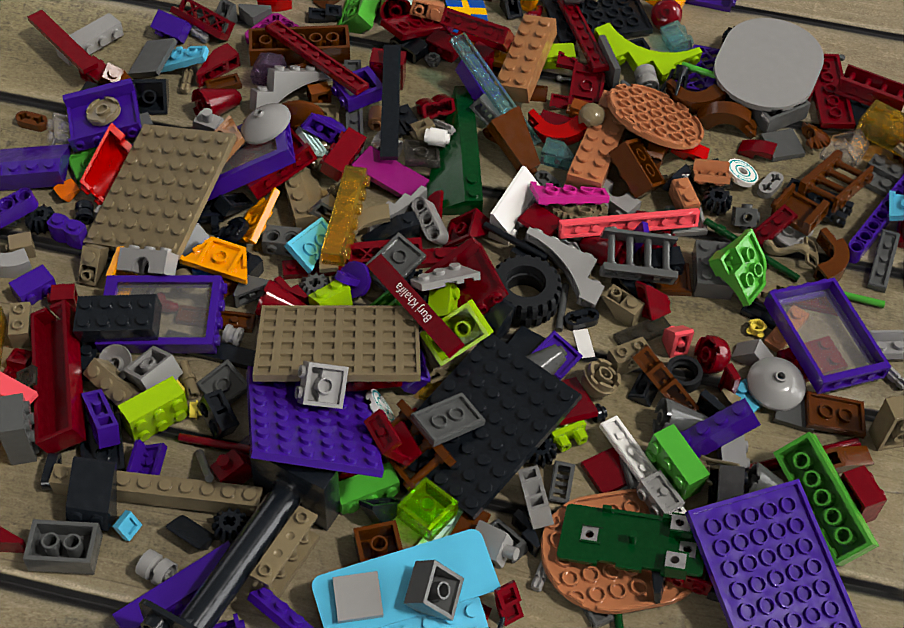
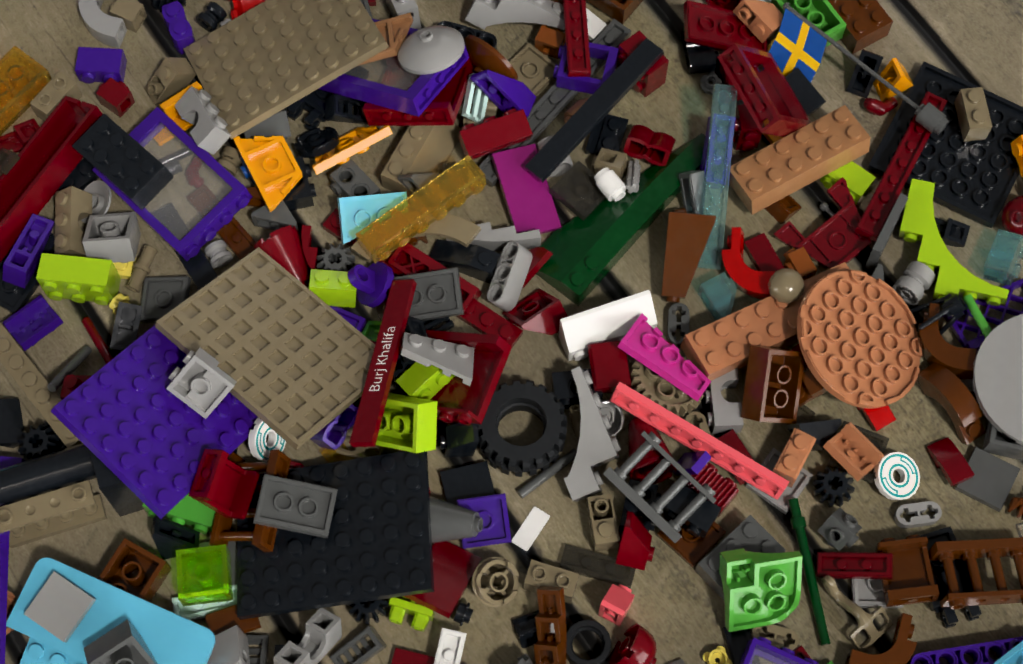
camera: 45 degrees right, 15 degrees up
(517, 242) = (564, 367): black bar -> none
(581, 319) = (550, 507): black beam -> none

